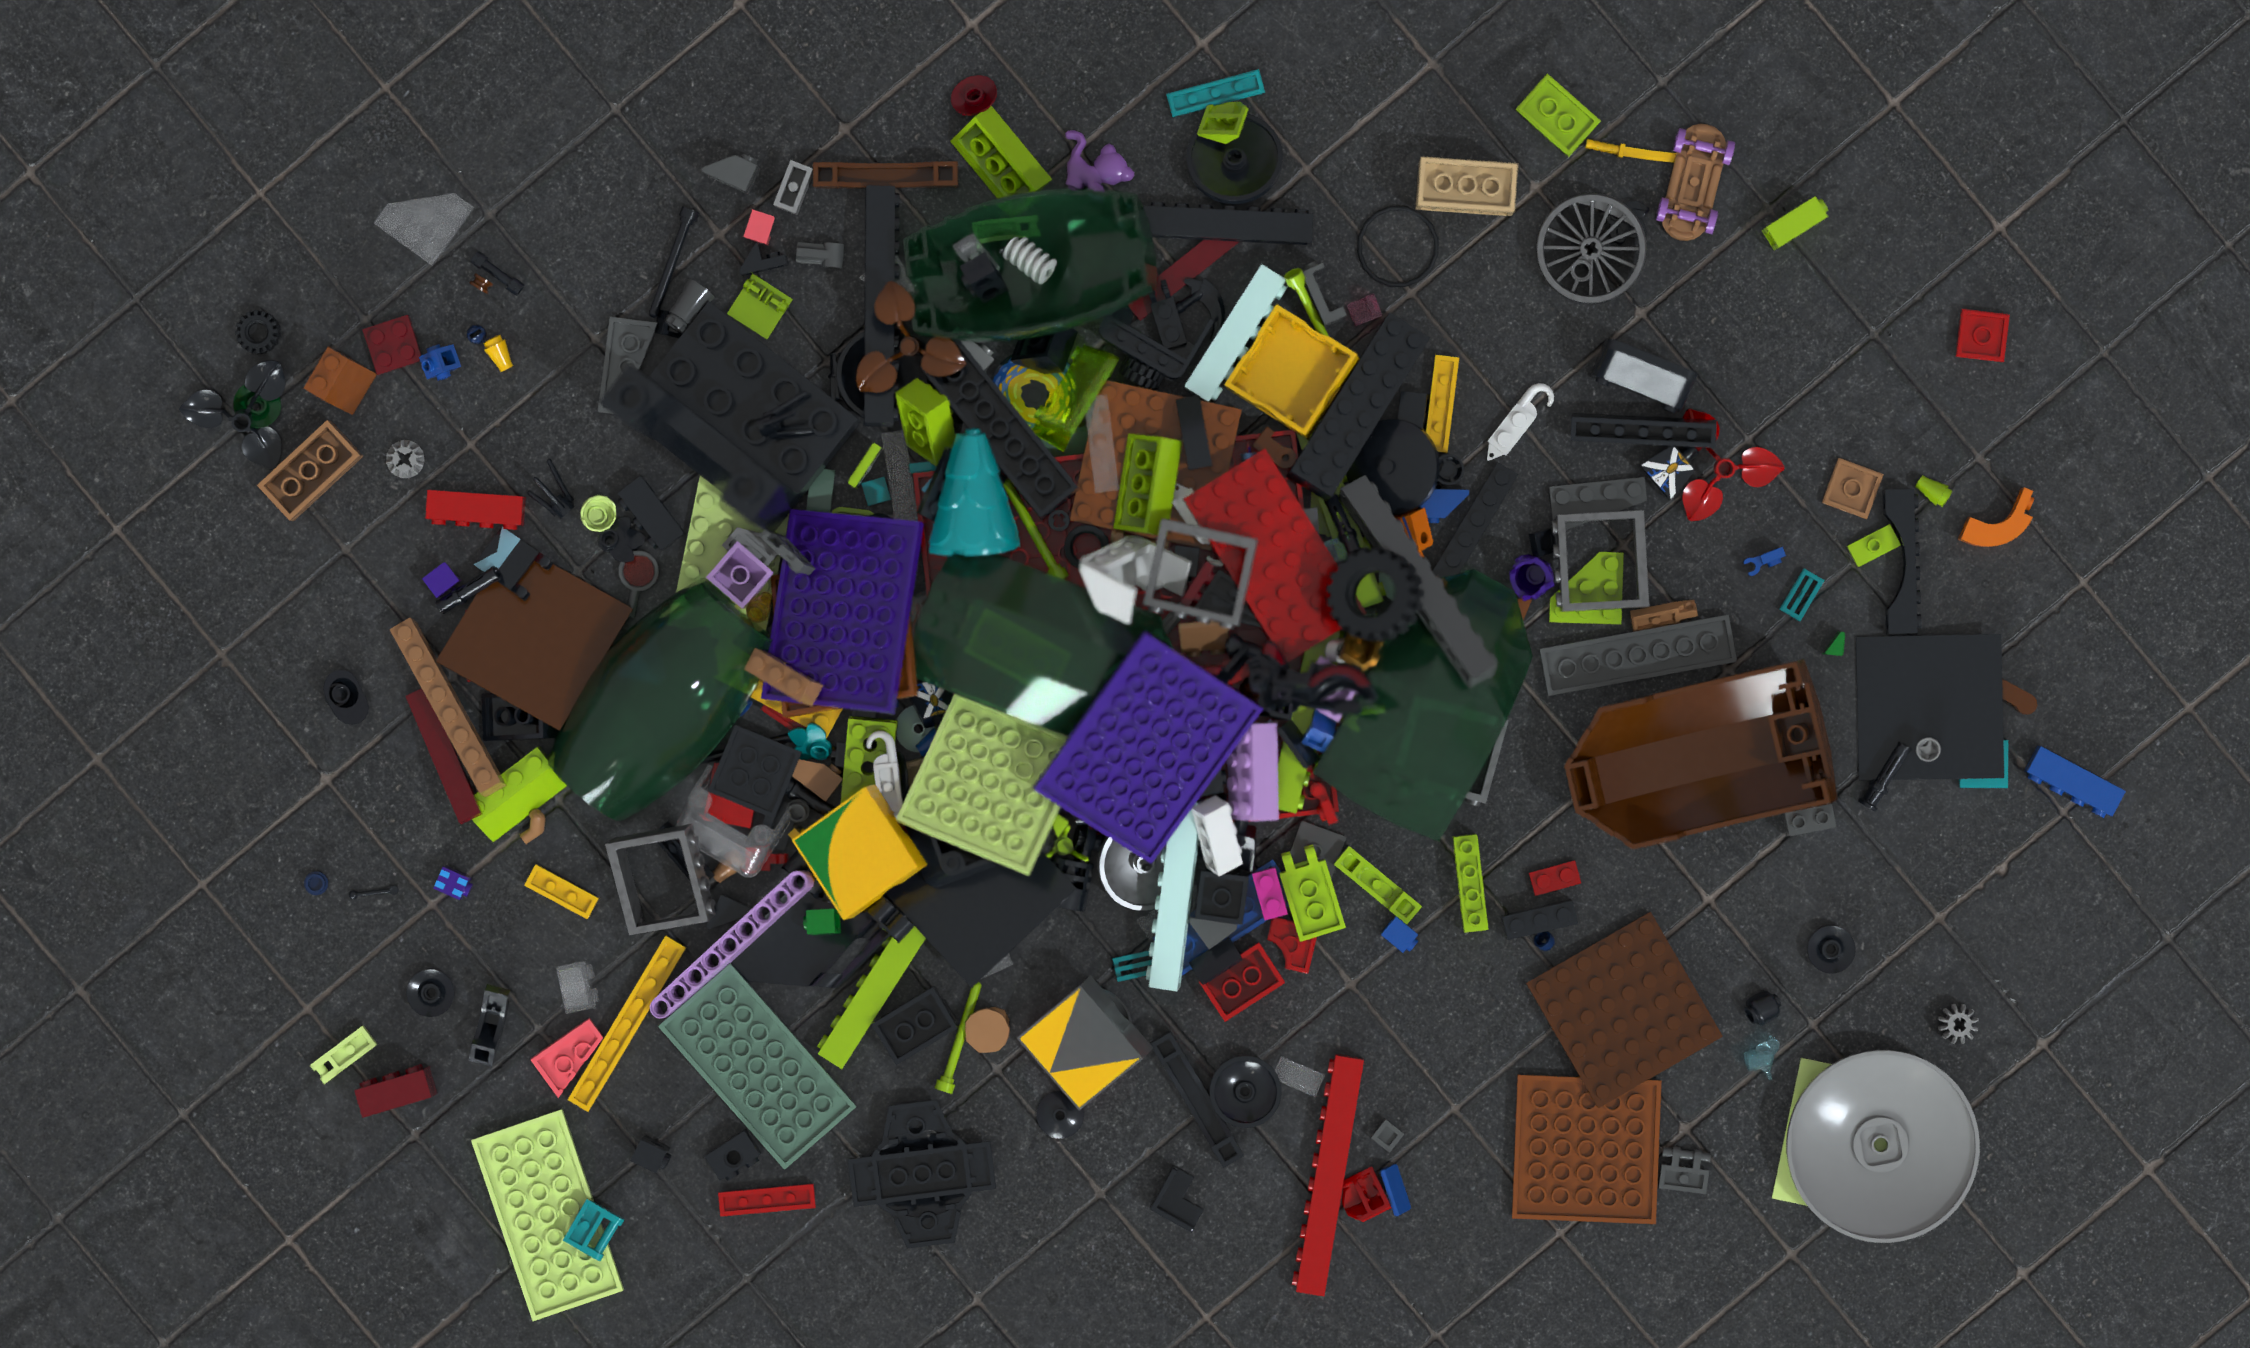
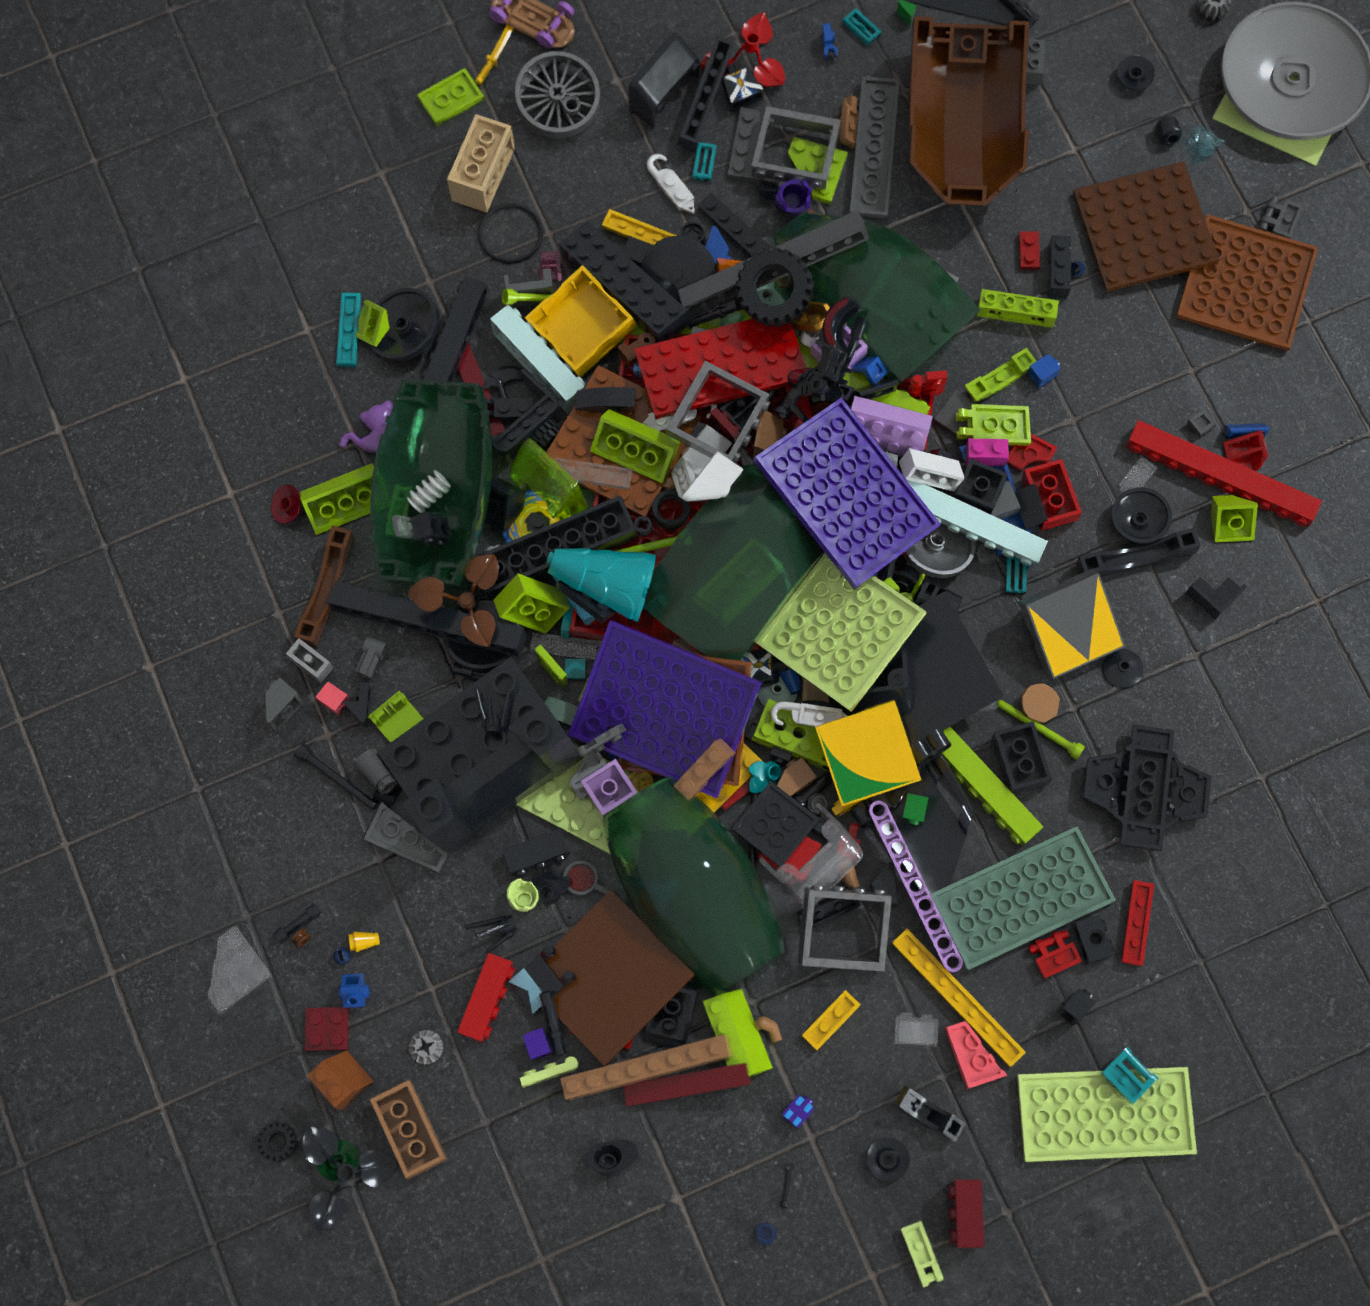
camera: 75 degrees left, 15 degrees down
(417, 603) = (550, 1071): none -> yellowish green plate
(700, 1122) = (1057, 960): none -> red plate
(1275, 1198) = (1233, 518): none -> lime slope
(1539, 455) = (702, 175): none -> teal tile

